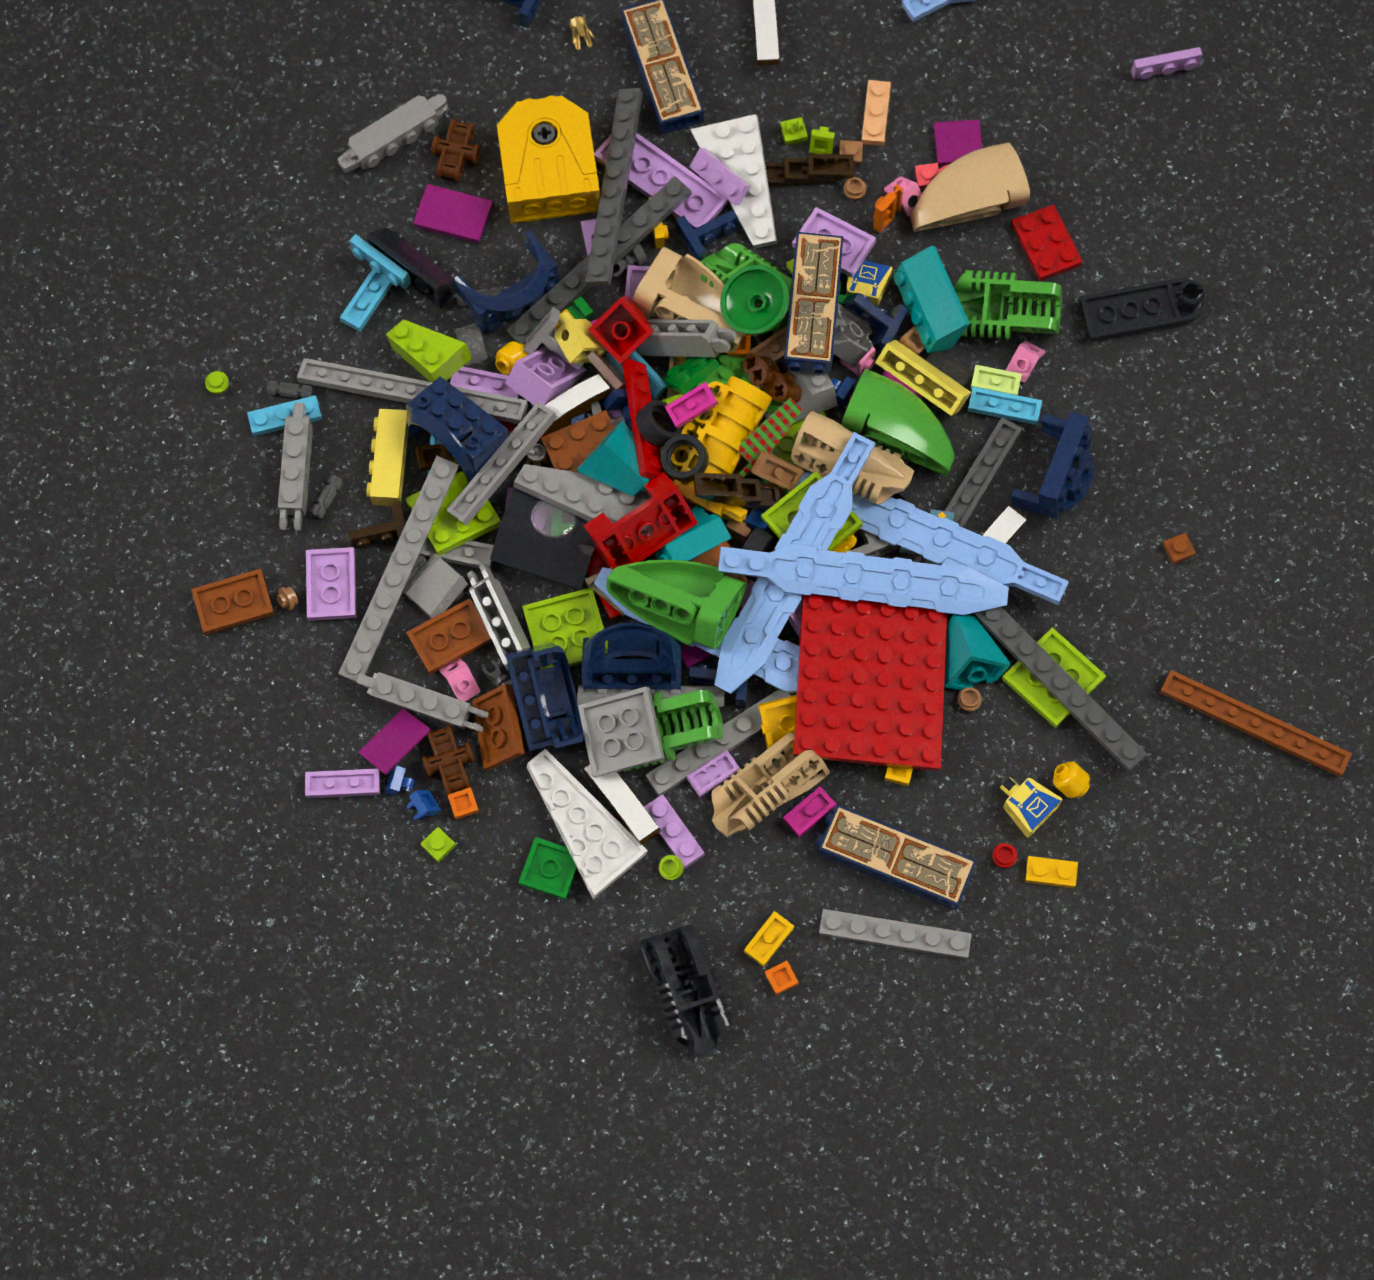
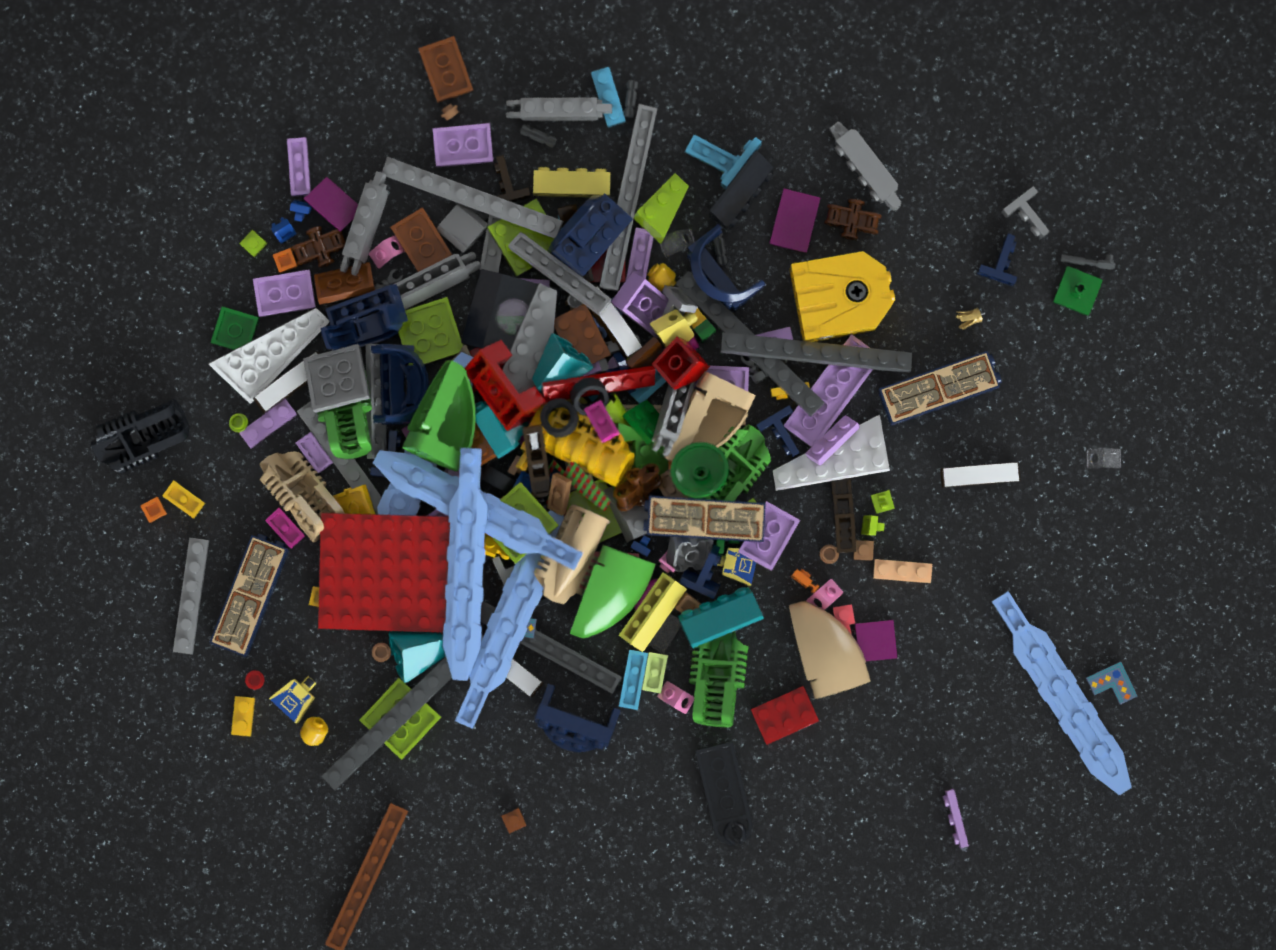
camera: 85 degrees right, 15 degrees up
(217, 382) = (635, 40): lime plate -> none
(505, 805) = (284, 293): none -> lavender plate

